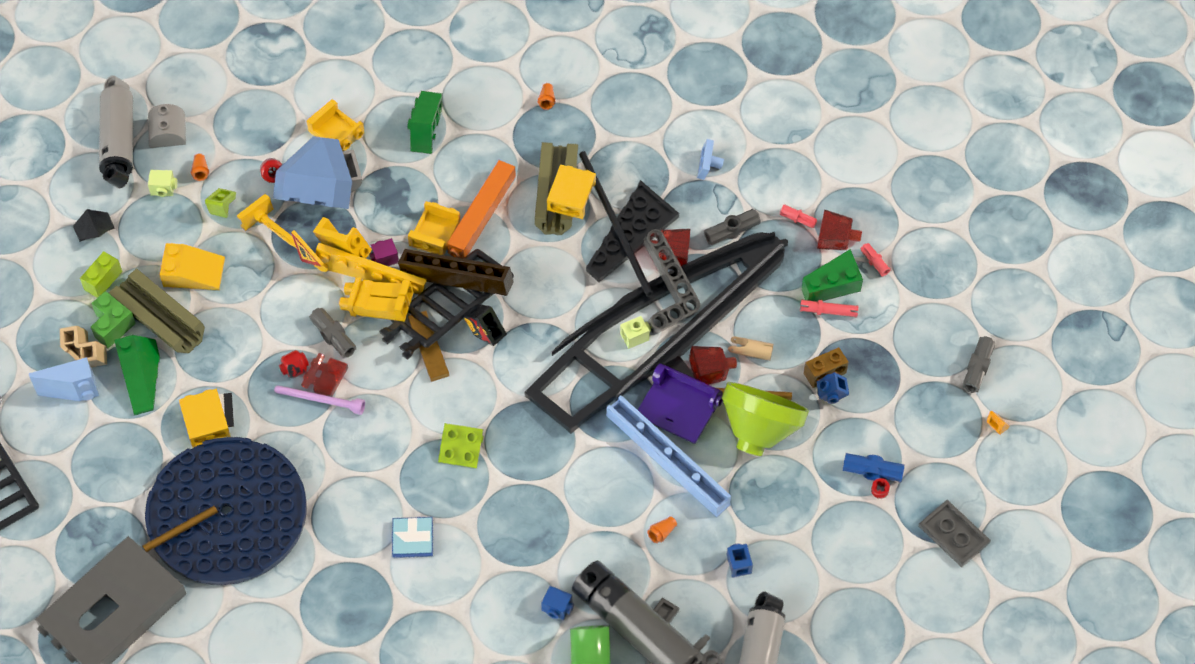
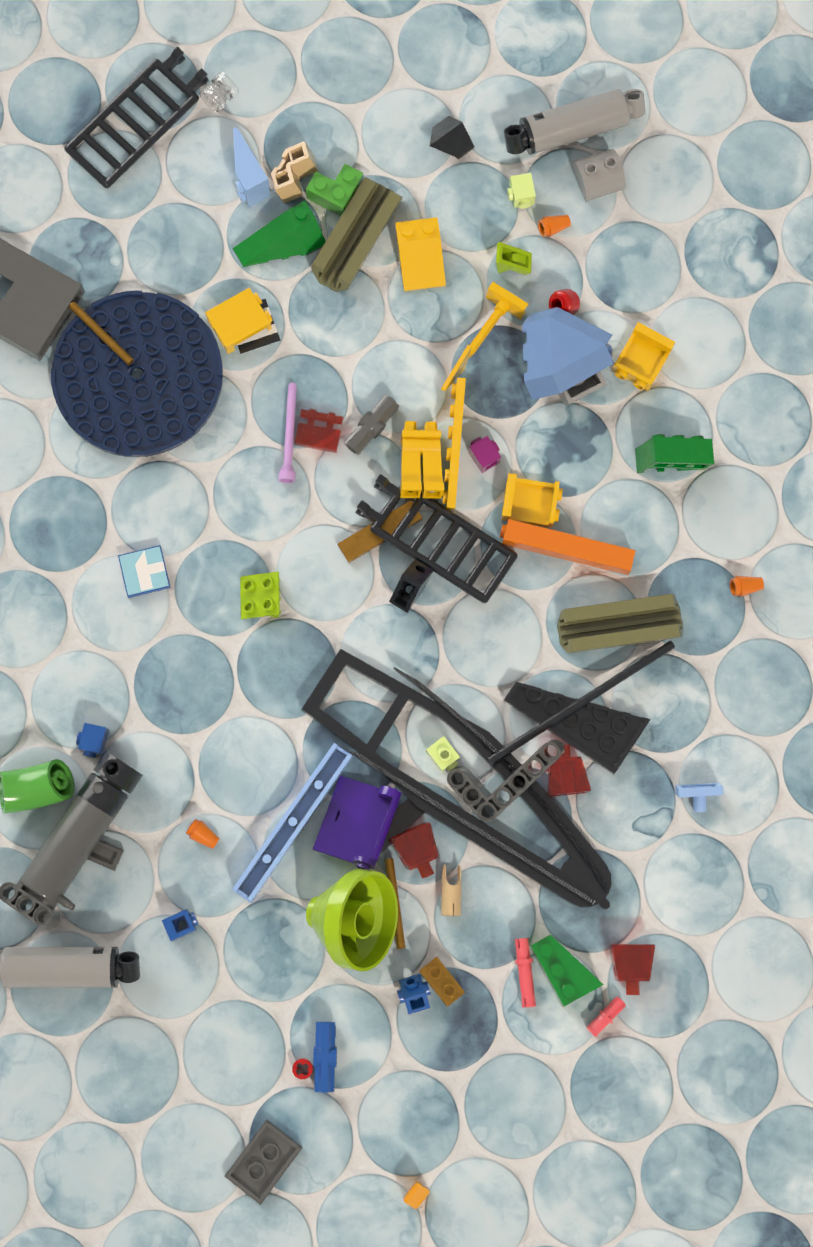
camera: 75 degrees right, 20 degrees up
(101, 274) = (389, 163): lime brick -> none
(293, 364) = (323, 394): red head -> none
(351, 243) = (485, 392): yellow panel -> none
(457, 272) = (467, 537): dark brown brick -> none
(570, 191) = (606, 642): yellow panel -> none
(724, 230) = (621, 850): dark grey piece -> none
(797, 216) = (645, 915): coral axle -> none
(978, 364) = (486, 1161): dark grey piece -> none

